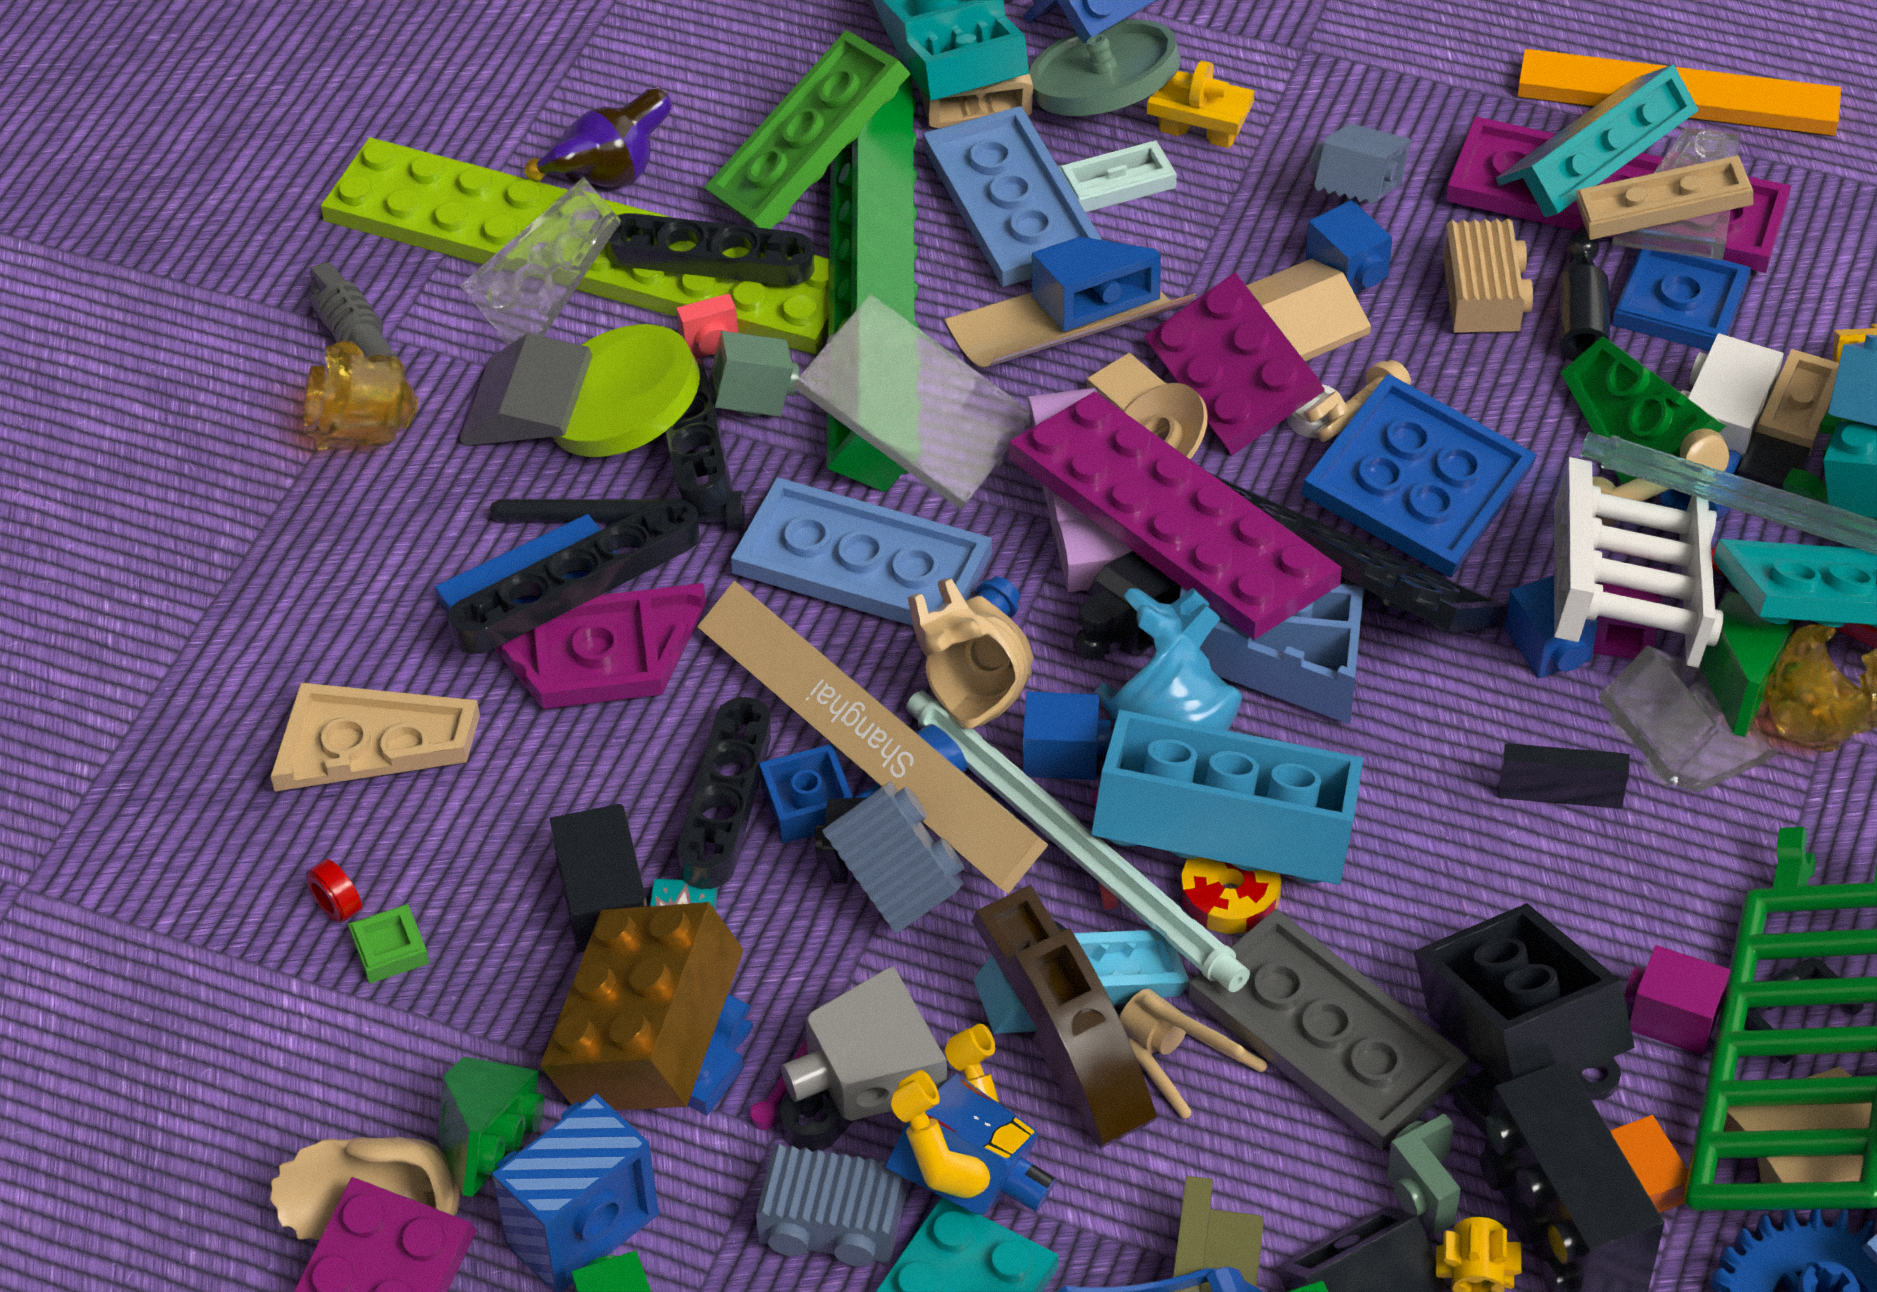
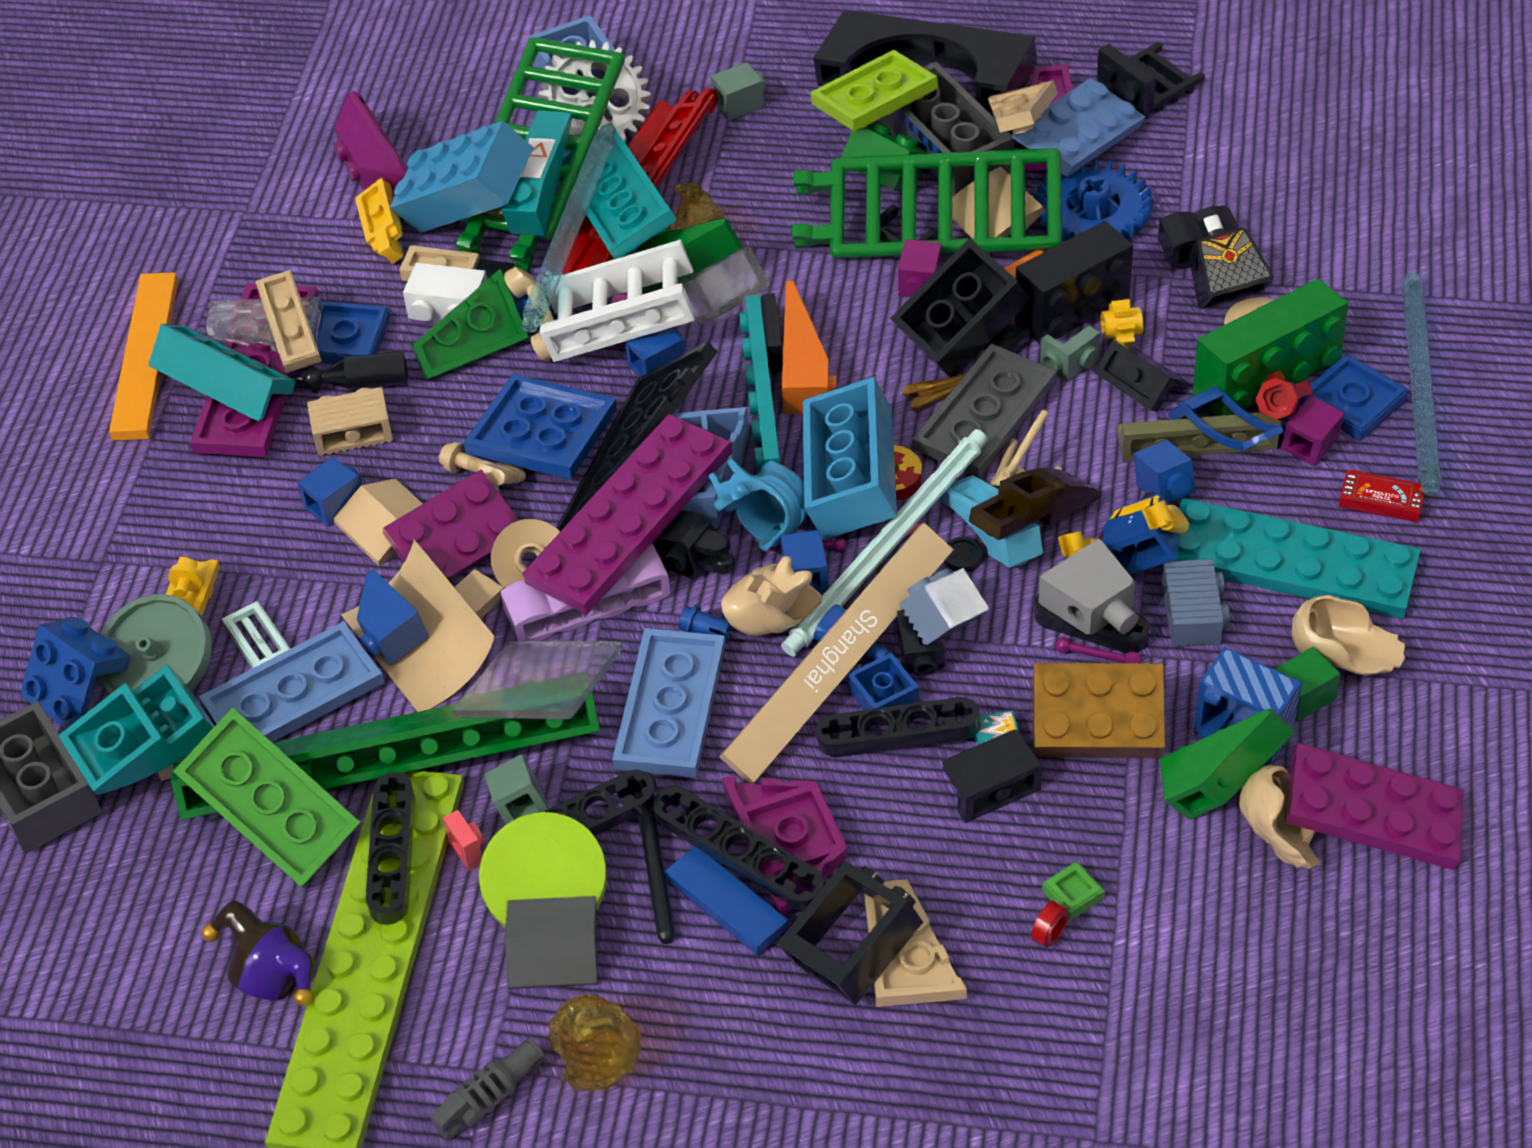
camera: 100 degrees left, 0 degrees up
(354, 633) = (874, 952): none -> black window
(543, 265) = (426, 958): clear wing -> none
(1105, 1229) = (1164, 471): none -> blue brick
(1360, 162) = (258, 482): sand blue brick -> none
(1398, 972) = (929, 391): none -> pearl gold piece
(1421, 740) = (758, 376): none -> teal plate
(1492, 804) = (804, 359): none -> orange slope

